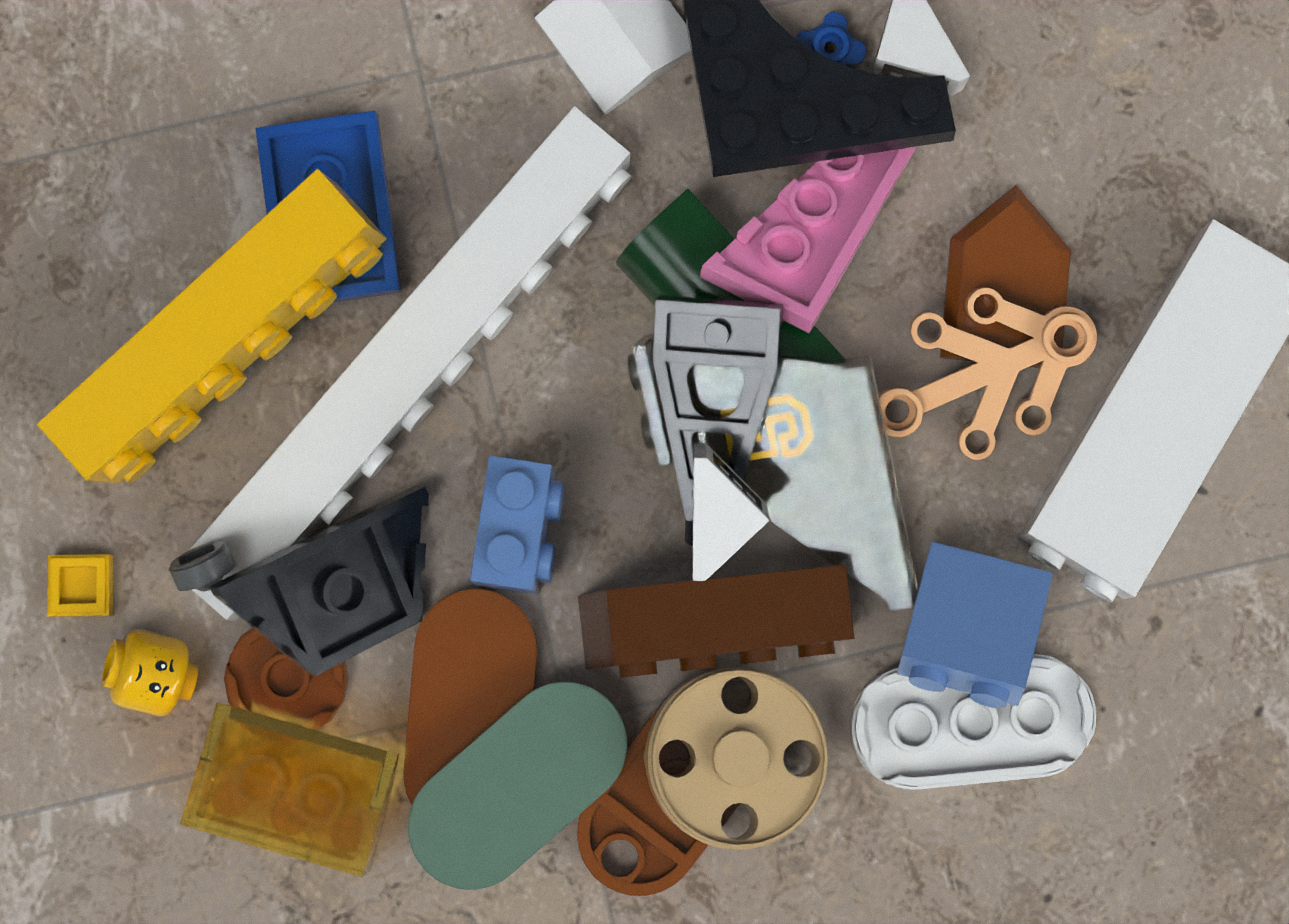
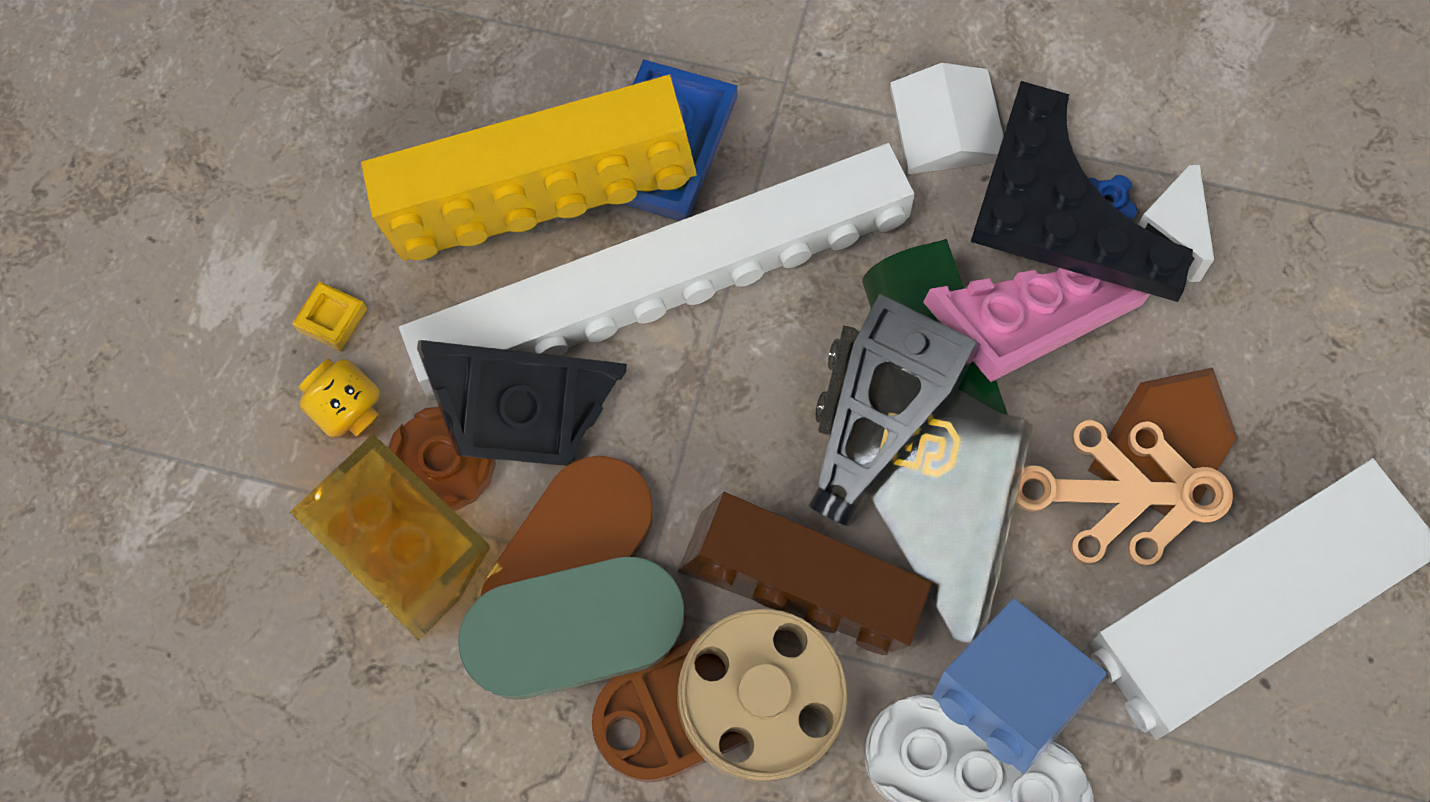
camera: 35 degrees right, 15 degrees down
(202, 566) = (421, 327): dark grey tile -> none
(514, 525) = (679, 420): medium blue brick -> none
(723, 512) = (848, 482): white slope -> none

